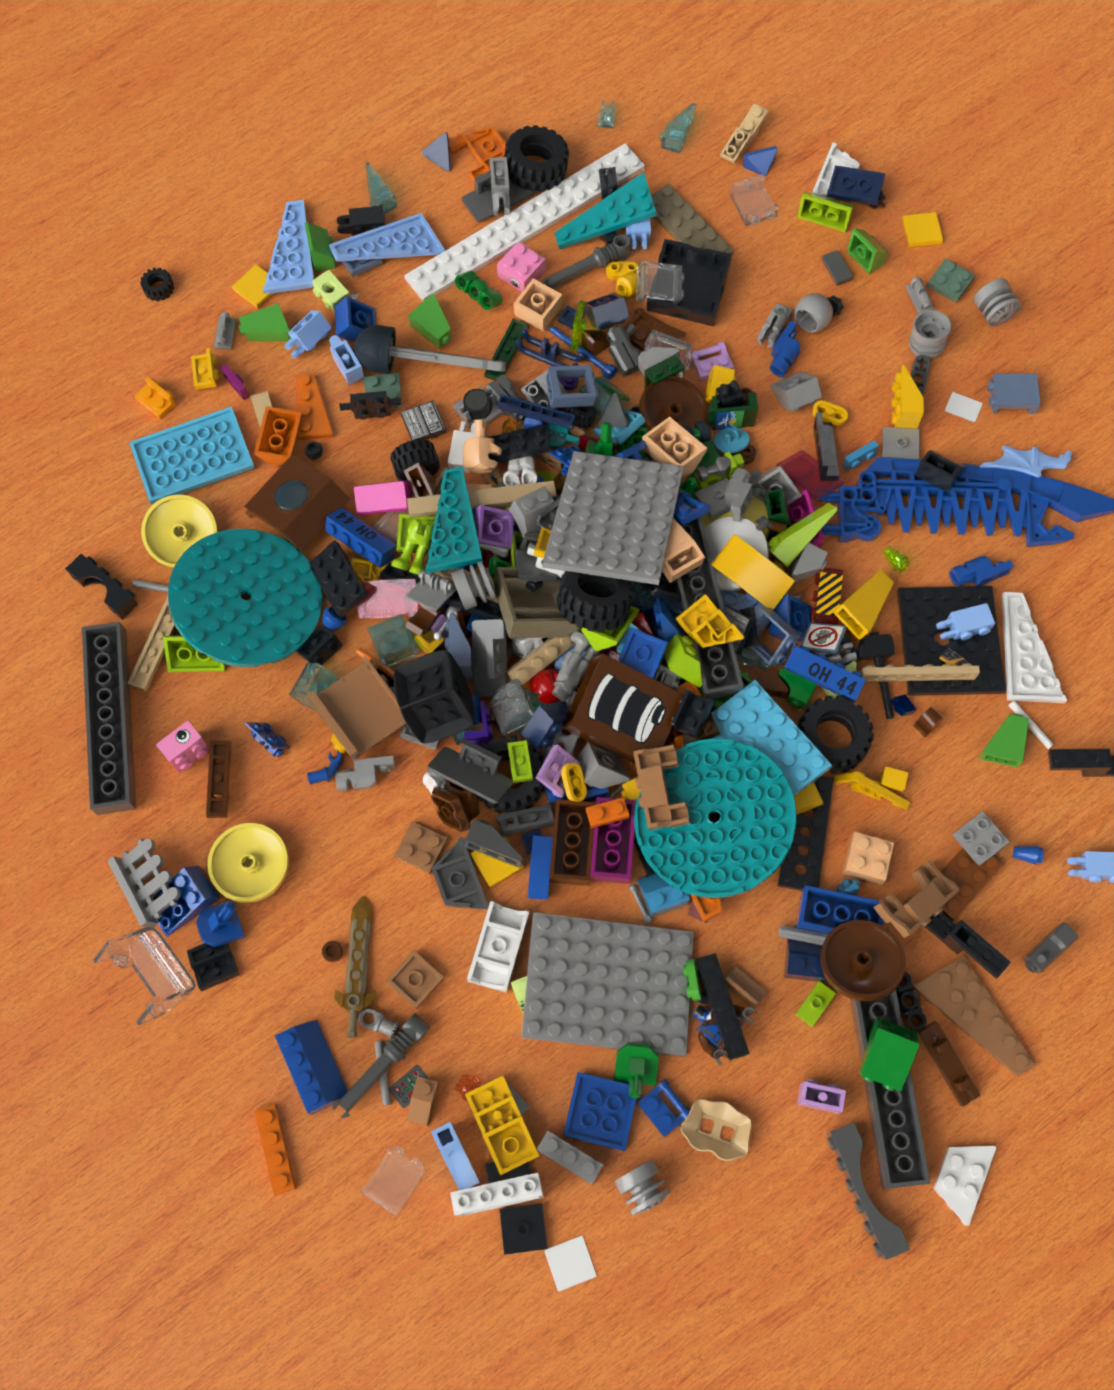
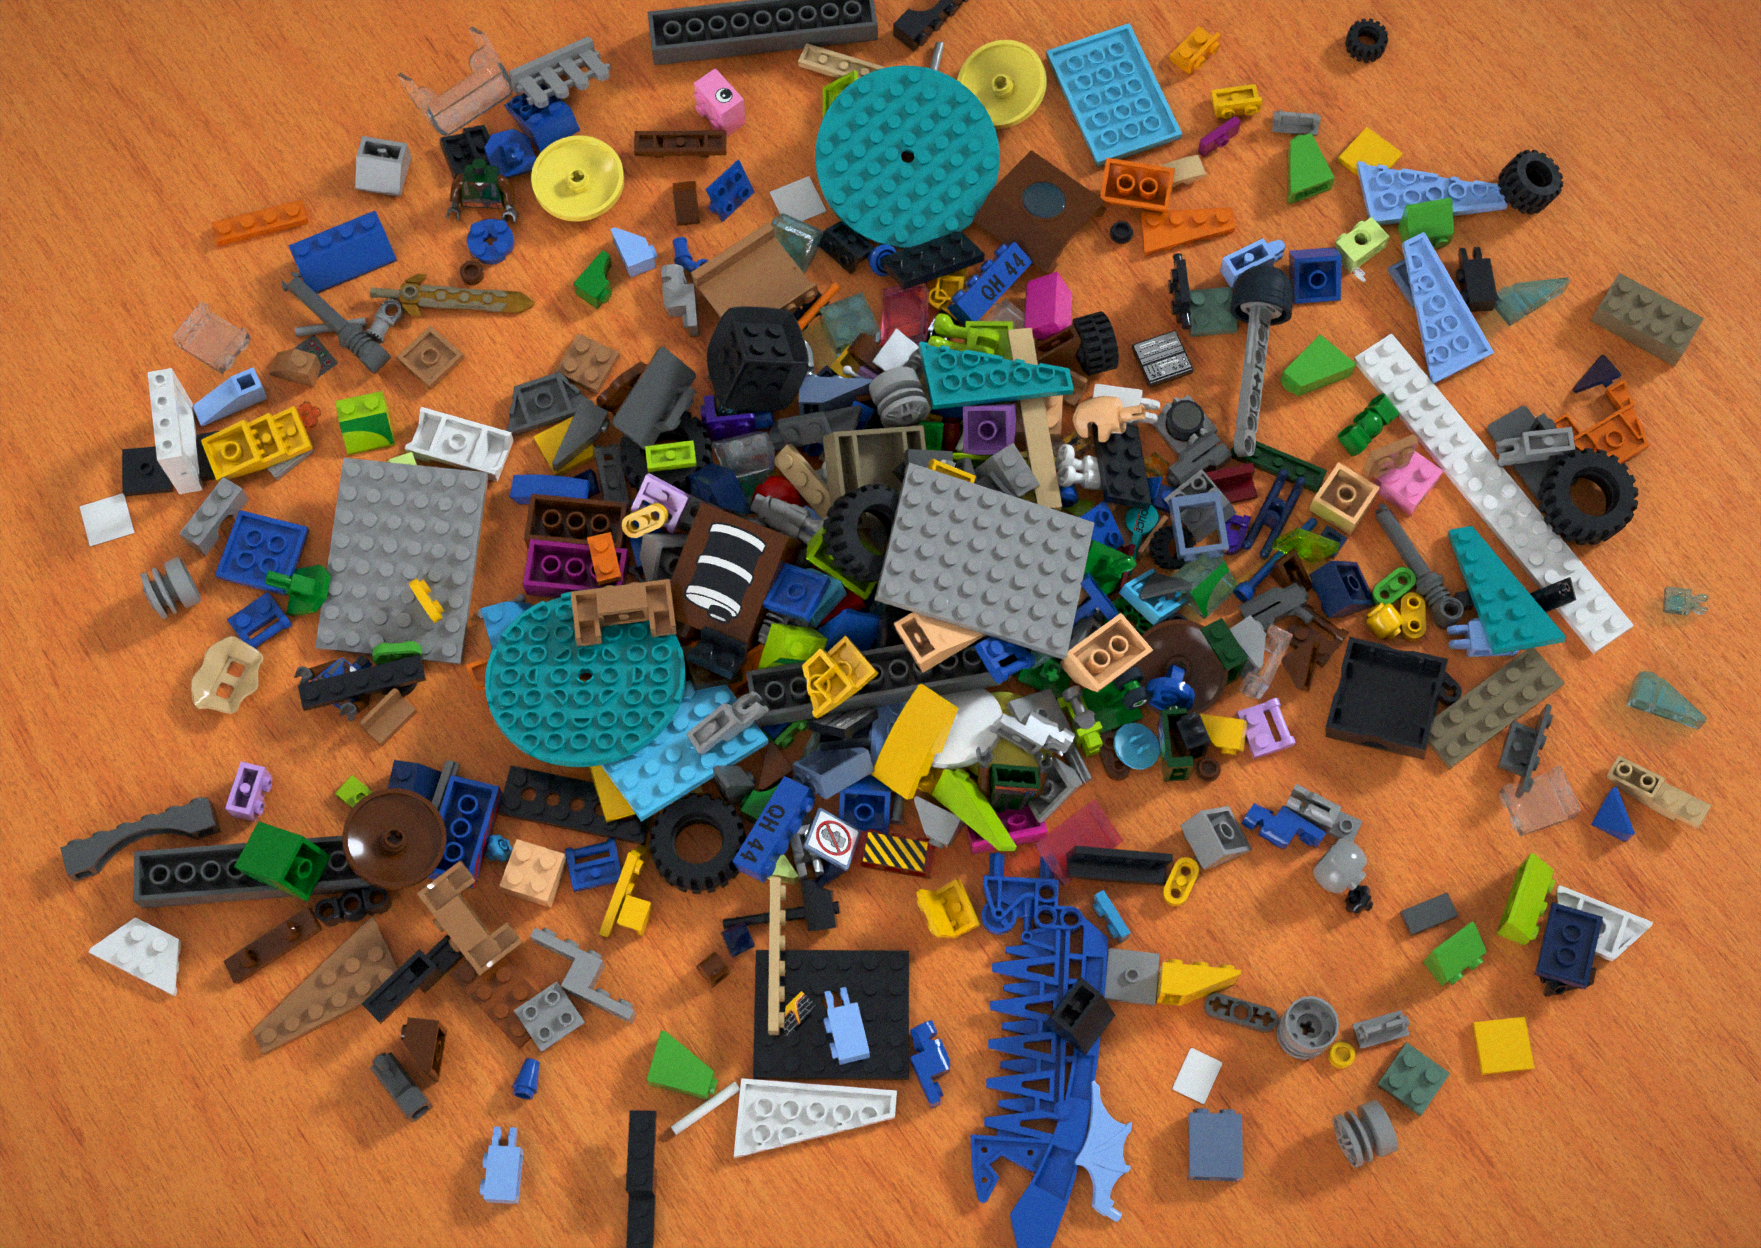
camera: 90 degrees right, 0 degrees up
(227, 1037) = (382, 166): none -> light grey slope
(254, 944) = (482, 188): none -> torso
(271, 774) = (686, 203): none -> reddish brown slope
(273, 688) = (798, 200): none -> white sticker
(287, 182) = (1530, 181): none -> black tyre
(307, 333) = (1291, 215): light blue hinge -> none
(310, 945) = (487, 229): none -> blue plate
(318, 814) = (634, 252): none -> light blue slope
(348, 844) = (592, 283): none -> green arch
(397, 122) = (1647, 319): none -> dark tan brick
(478, 1030) = (365, 422): none -> lime slope
(516, 262) = (1390, 456): none -> medium nougat plate
(523, 375) = (1235, 482): none -> dark red panel
(536, 412) = (1165, 487): dark blue piece -> none
(603, 281) = (1391, 586): none -> bright green plate
(654, 951) = (431, 607): none -> yellow plate
(659, 282) = (1379, 655): clear panel -> none
(695, 408) = (1171, 690): none -> blue tile
(718, 205) = (1522, 747): none -> dark grey bracket
(752, 702) = (726, 722): none -> light grey plate
(791, 705) = (733, 783): none -> dark grey slope
(860, 813) = (594, 872): none -> blue plate
(863, 607) = (878, 895): yellow slope -> none
(867, 558) = (948, 910): none -> yellow bracket
(896, 560) = (949, 952): clear neon green cone -> none
(943, 816) = (583, 974): none -> light grey bracket
(1016, 928) = (426, 1043): none -> reddish brown slope

